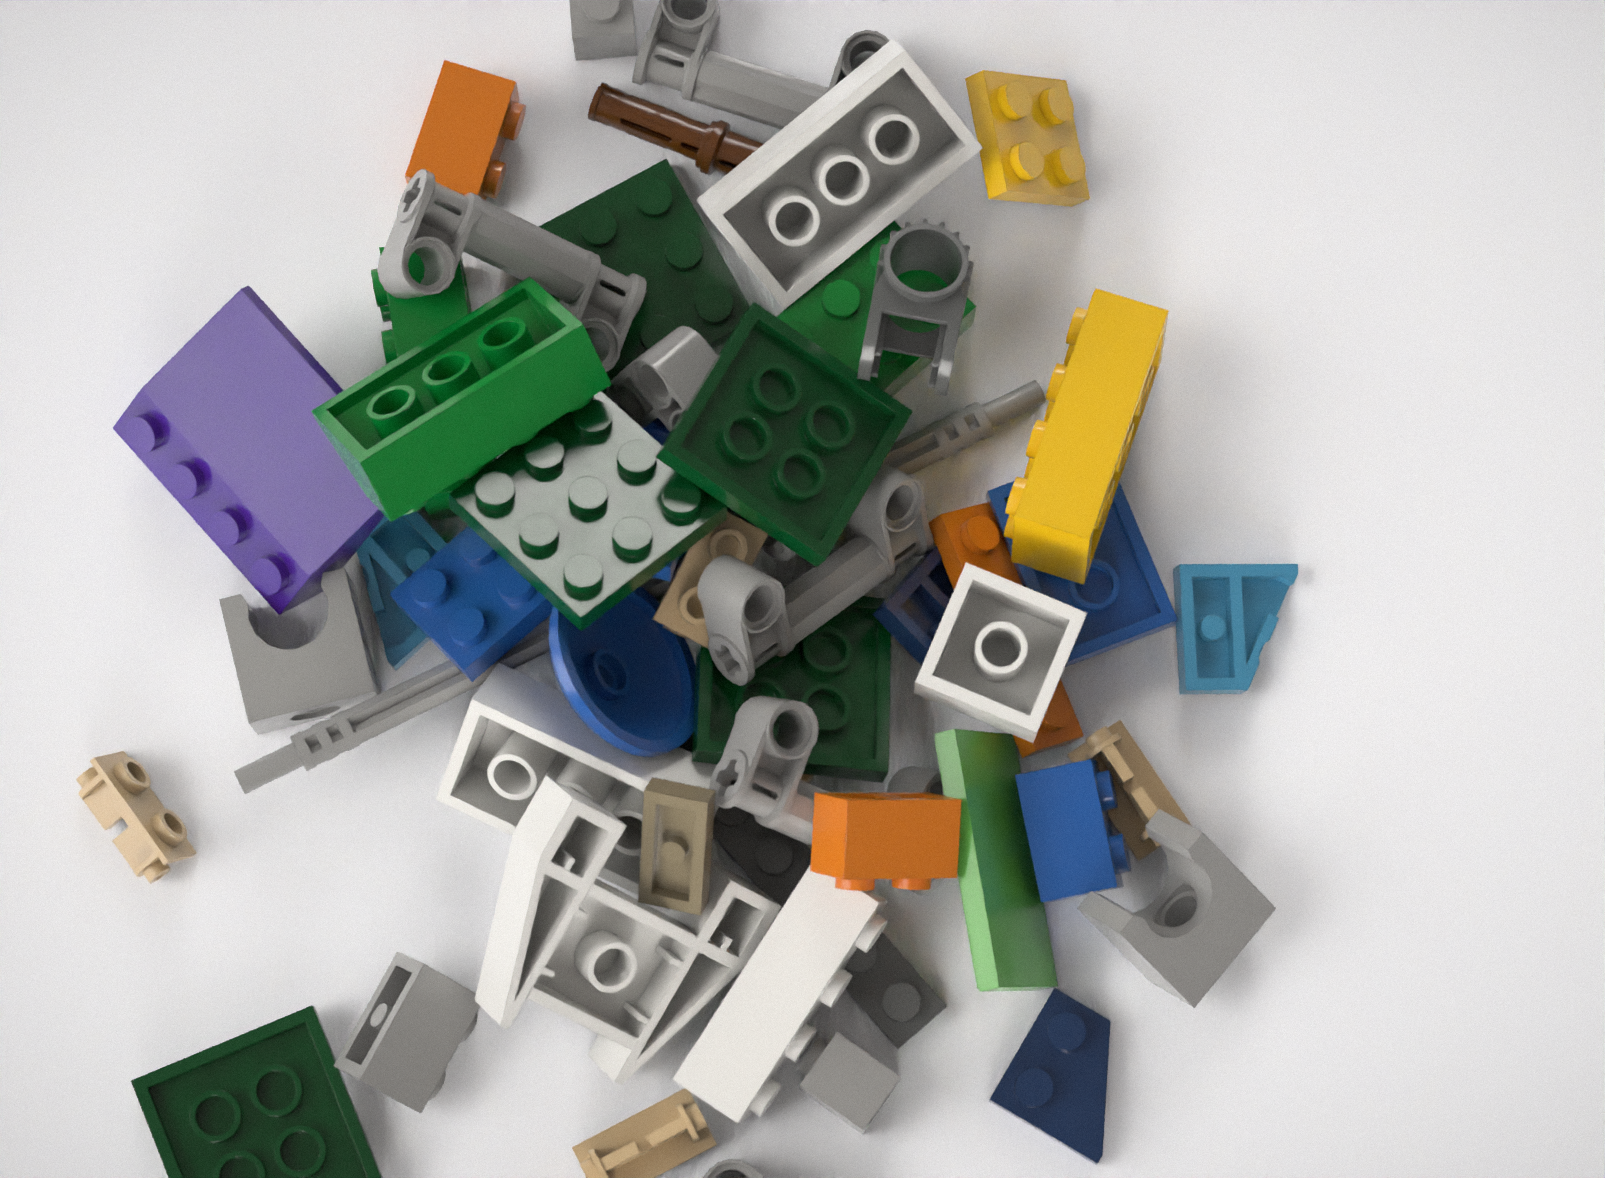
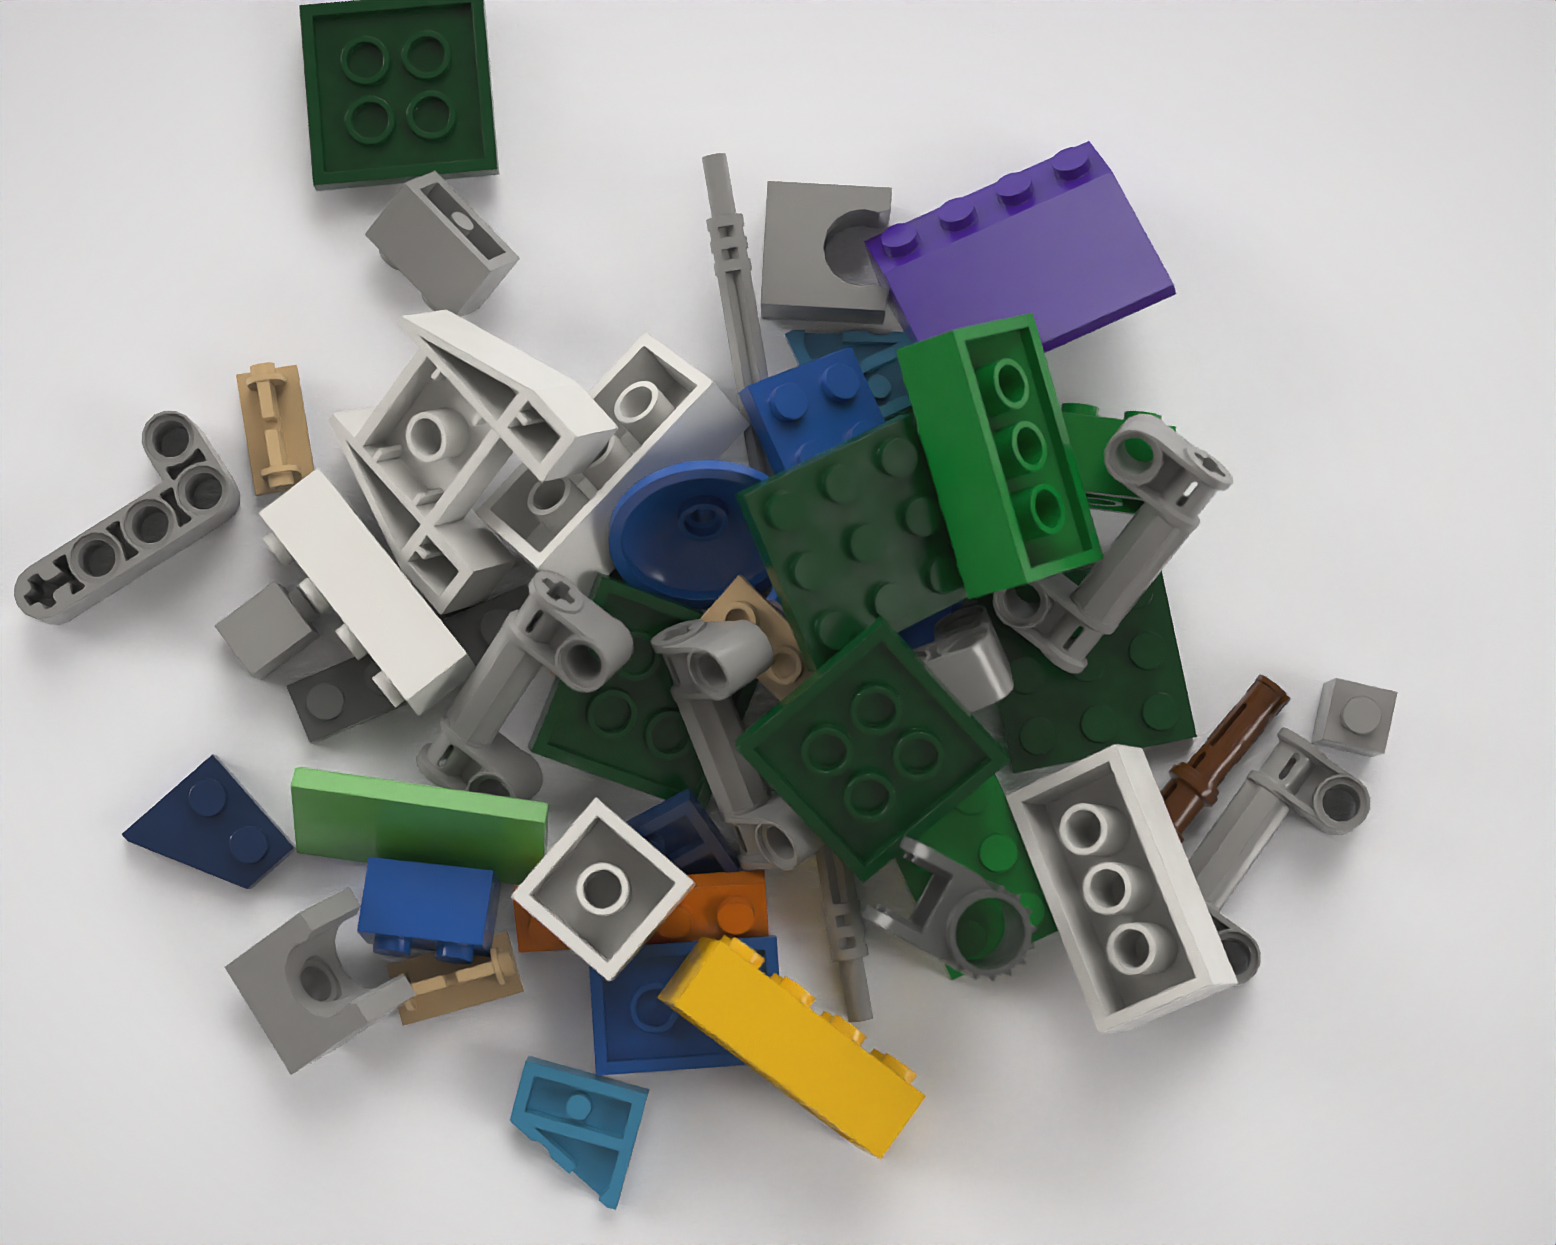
camera: 110 degrees right, 5 degrees up
(120, 790) = (751, 58): tan hinge -> none
(467, 130) = (1274, 552): orange brick -> none
(676, 846) = (515, 527): dark tan plate -> none
(885, 837) = (461, 724): orange brick -> none
(1027, 138) = (1106, 1086): yellow plate -> none

